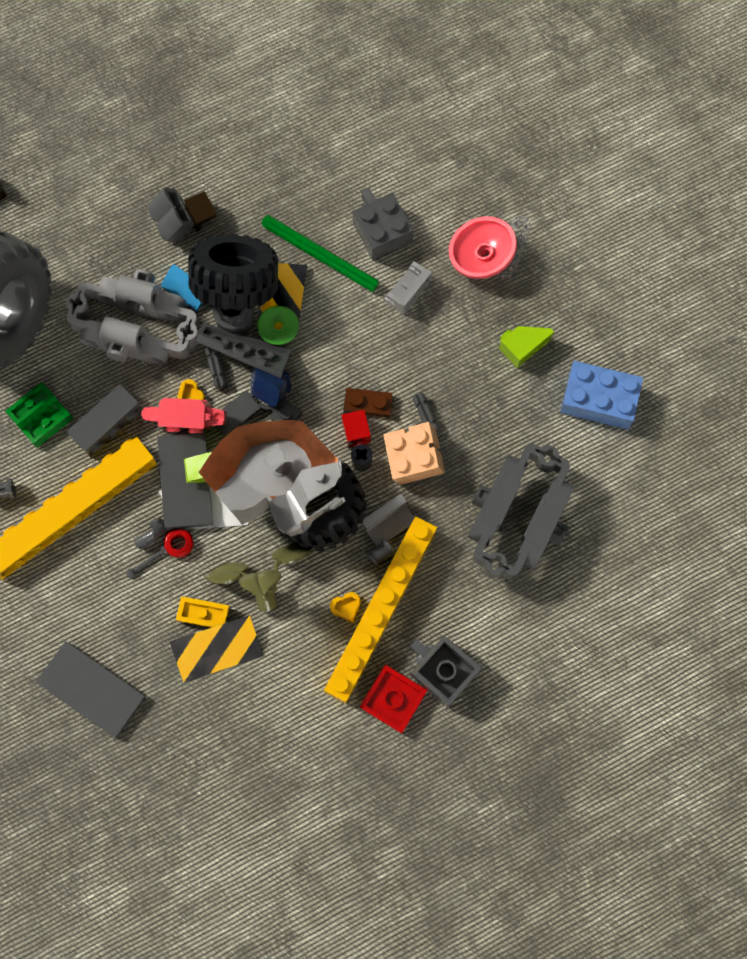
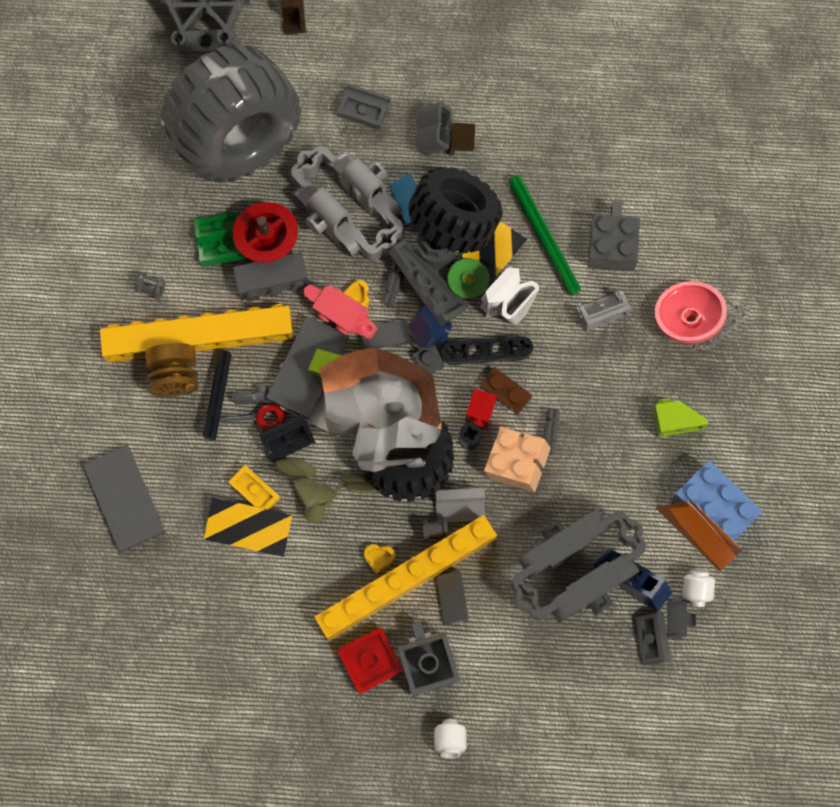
camera: 30 degrees right, 0 degrees up
(65, 551) = (171, 369): none -> pearl gold wheel
(77, 384) = (265, 232): none -> red piece
(97, 230) = (364, 106): none -> dark grey plate
(119, 551) = (217, 395): none -> black axle
(204, 552) = (287, 438): none -> black hinge
(323, 321) = (509, 297): none -> white piece
(328, 375) = (487, 354): none -> black beam
(430, 603) = (452, 597): none -> dark grey slope
(502, 723) = (450, 739): none -> white head
(586, 496) = (643, 586): none -> dark blue slope
(603, 424) = (701, 532): none -> orange sticker
(616, 537) = (652, 638): none -> dark grey slope
(627, 508) = (679, 618): none -> dark grey piece
(628, 472) = (698, 588): none -> white head

